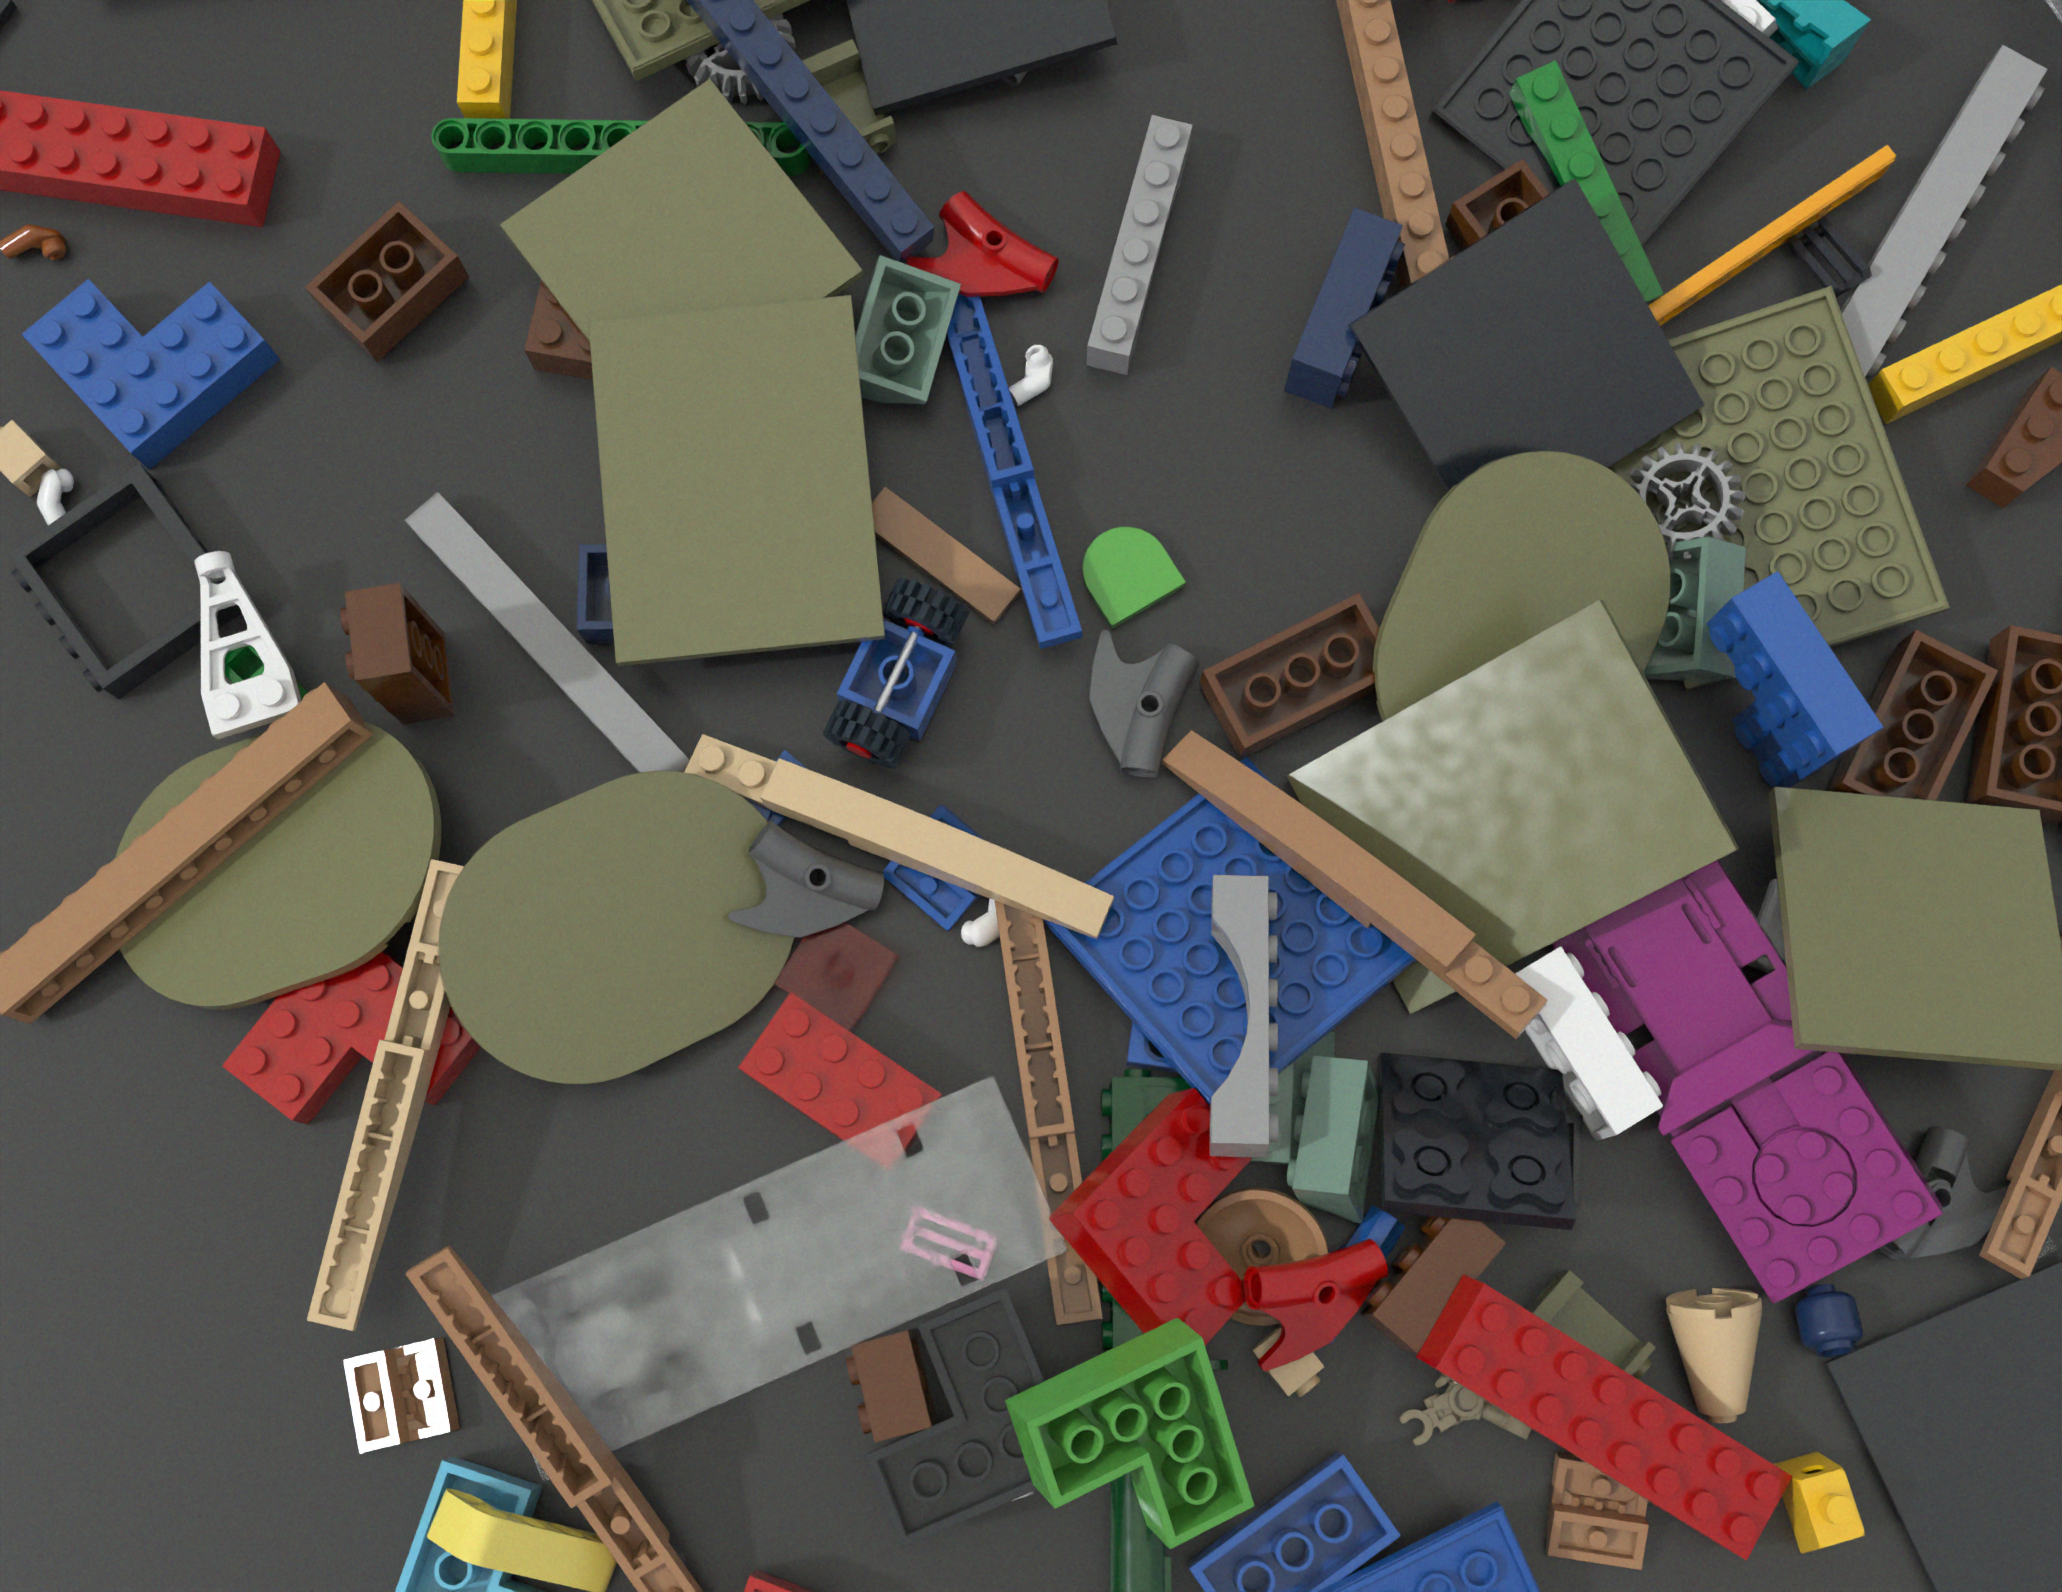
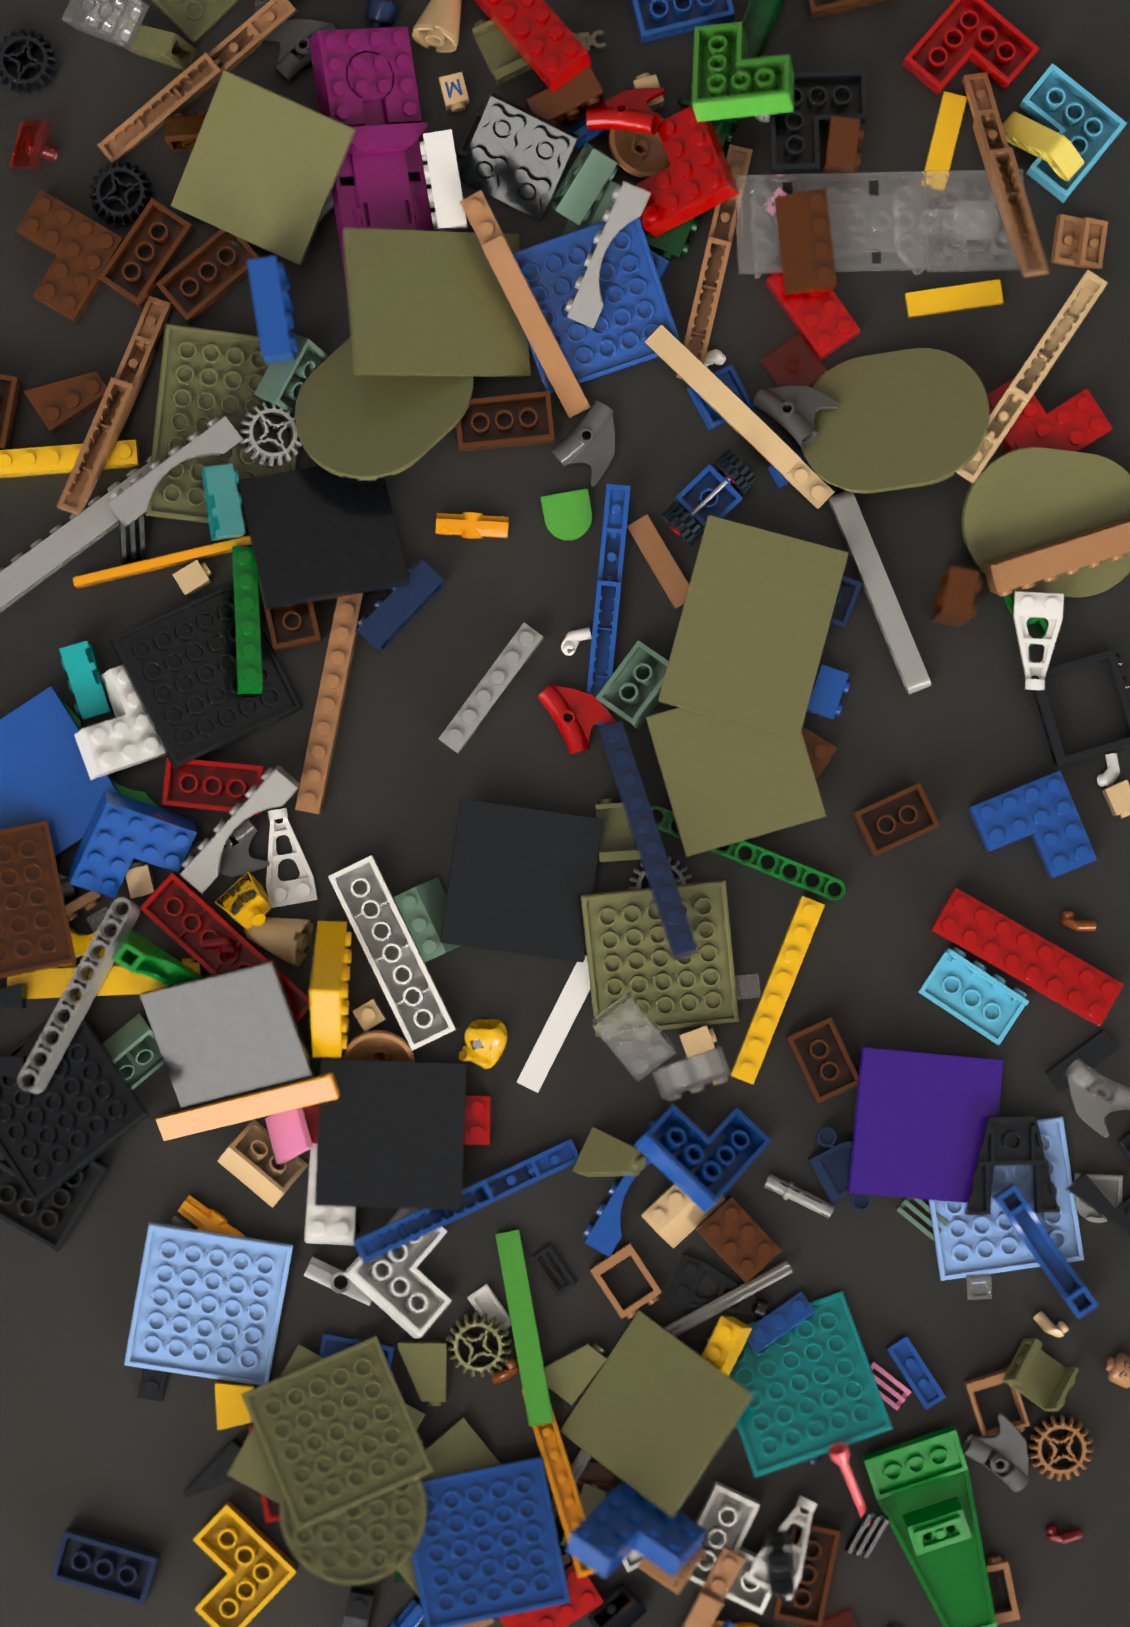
camera: 155 degrees left, 10 degrees up
(168, 68) = (973, 995): none -> medium azure bracket
(573, 445) = (827, 692): none -> blue brick
(594, 1201) = (954, 298): none -> yellow tile
(716, 1497) = (945, 132): none -> yellow tile
(891, 1172) = (805, 242): none -> reddish brown slope
(1280, 491) = (472, 525): none -> light orange piece
(1633, 1222) = (454, 92): none -> tan brick
(1701, 236) = (193, 577): none -> tan brick
(1714, 349) = (223, 502): none -> teal wedge
(1863, 289) = (214, 441): none -> light grey arch
(1964, 435) = (115, 406): none -> medium nougat slope

